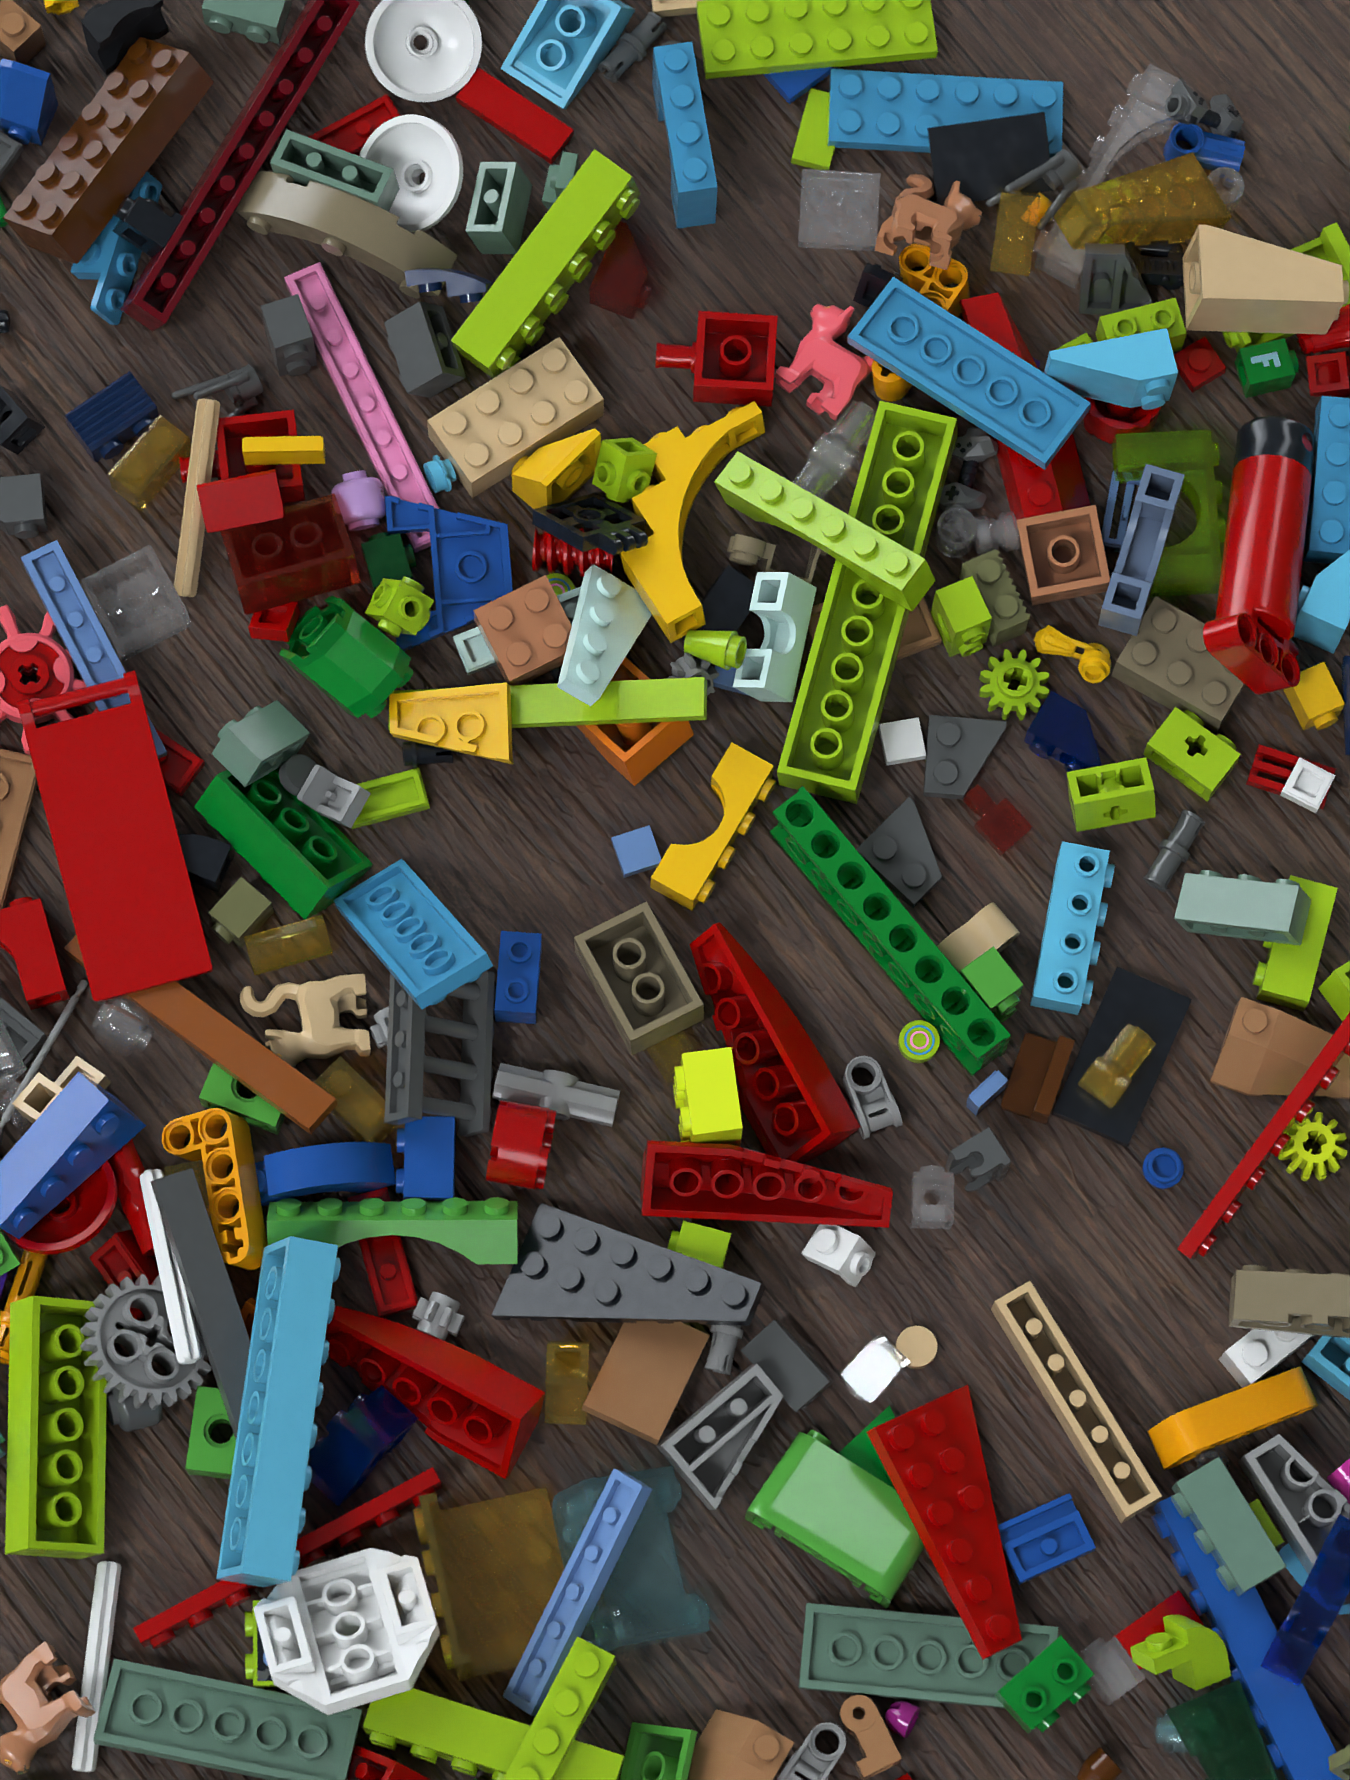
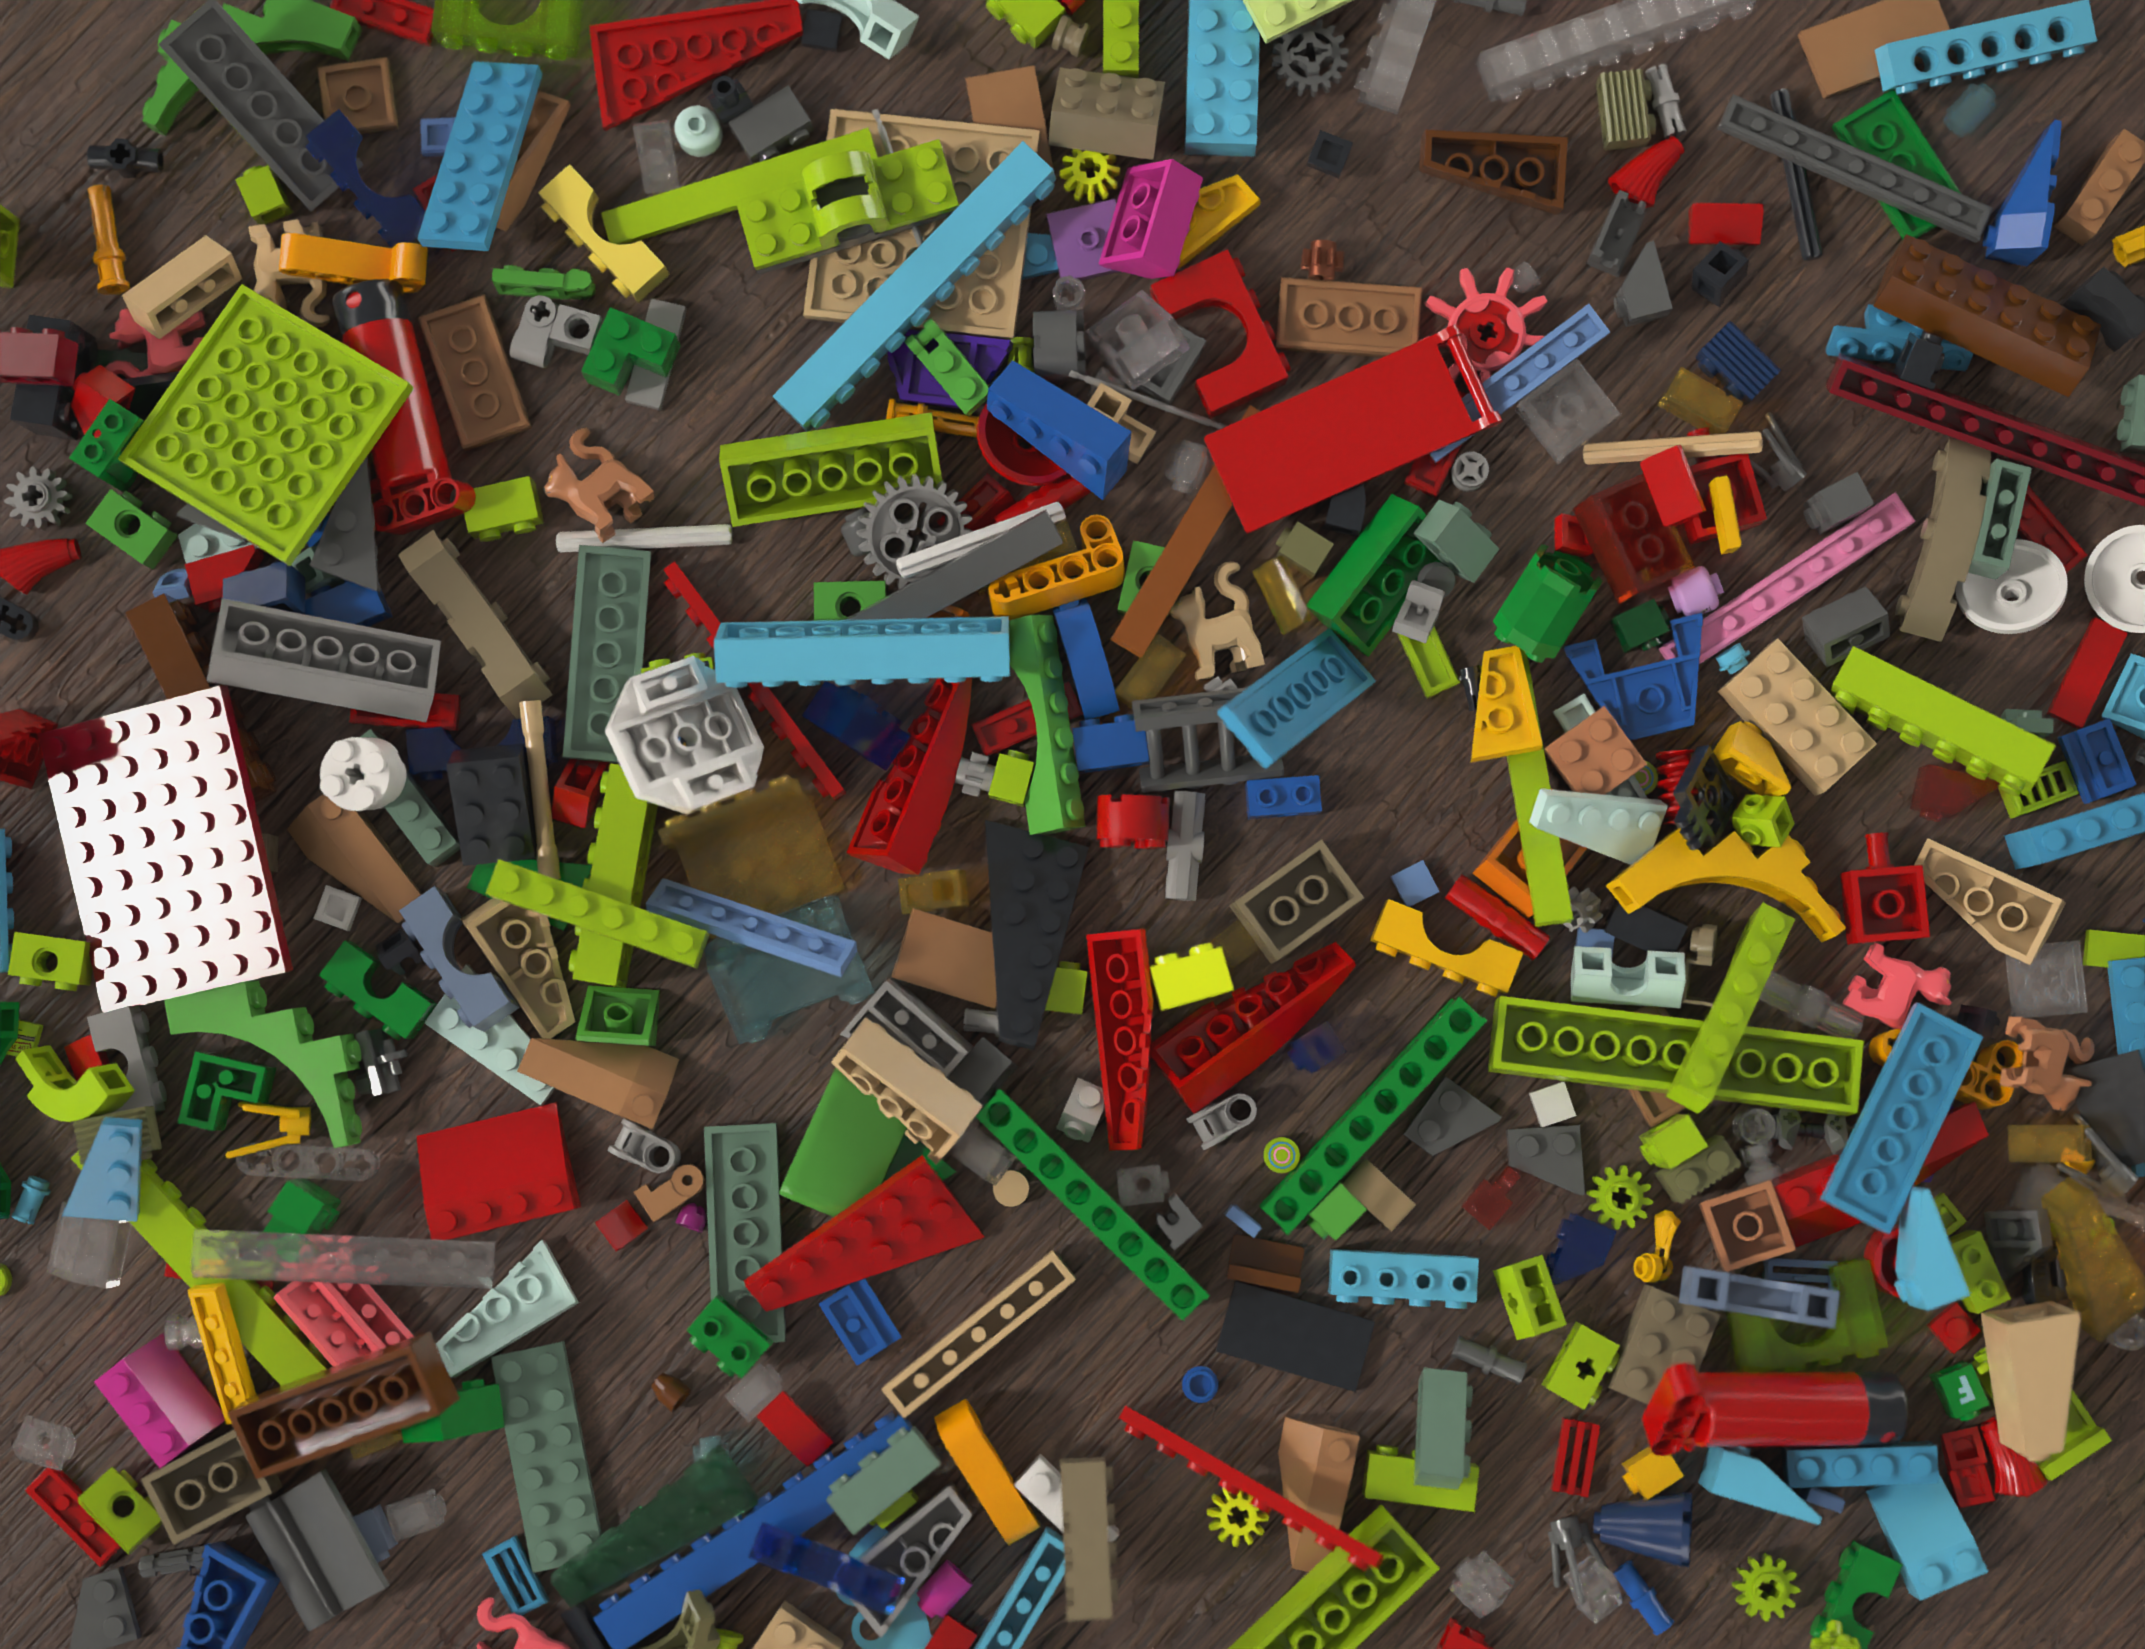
camera: 90 degrees right, 10 degrees up
(179, 712) = (1475, 466): none -> light grey wheel
(400, 606) = (1598, 641): lime brick -> none
(449, 1275) = (1012, 778): none -> lime brick
(458, 283) = (1910, 644): dark blue slope -> none
(498, 207) = (1993, 671): sand green brick -> none
(612, 120) = (2096, 761): none -> blue plate
(648, 210) = (2014, 804): none -> lime slope
(687, 767) = (1497, 917): none -> red axle
(717, 647) = (1606, 927): lime cone -> none
(751, 245) = (1998, 906): none -> tan wedge
(790, 1434) = (907, 1088): none -> tan wedge
(806, 983) = (1315, 1048): none -> clear blue slope
(945, 1253) = (1092, 1204): none -> green tile
(1112, 1072) = (1275, 1329): clear yellow piece -> none
(1187, 1648) = (776, 1453): lime brick -> none
(1307, 785) = (1567, 1473): white tile -> none

